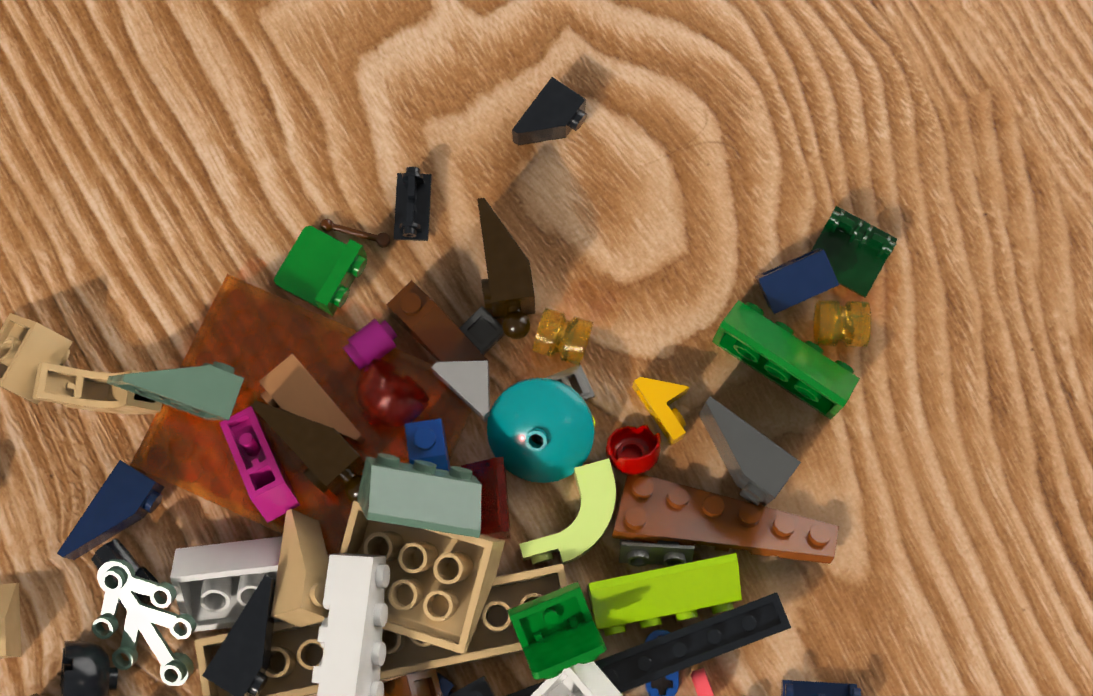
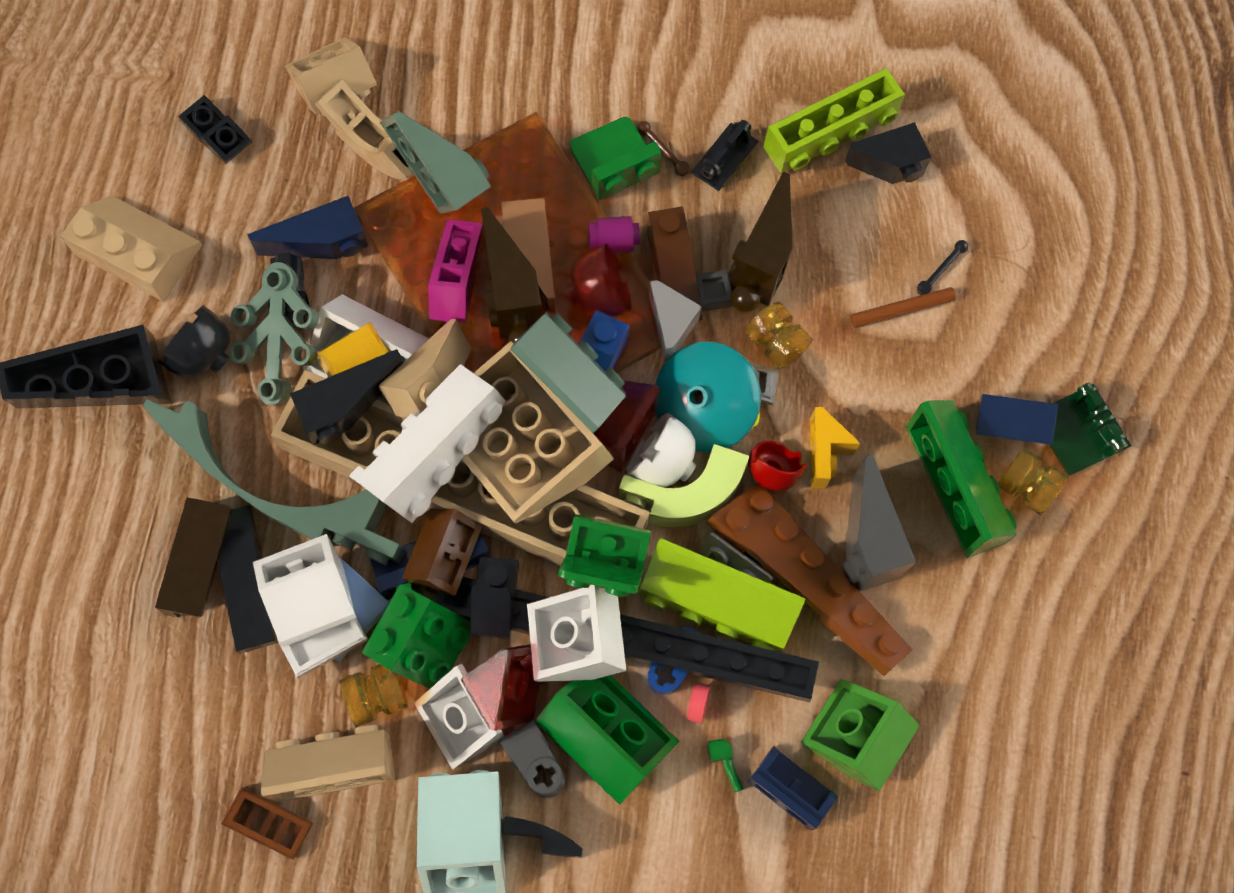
camera: 30 degrees right, 5 degrees down
(224, 598) = (351, 350): none -> yellow slope
(484, 117) = (833, 121): none -> lime brick
(539, 503) = (665, 454): none -> white cylinder
(644, 241) = (902, 307): none -> dark orange bar
(650, 212) = (926, 286): none -> black hinge
(843, 623) = (861, 733): none -> bright green slope

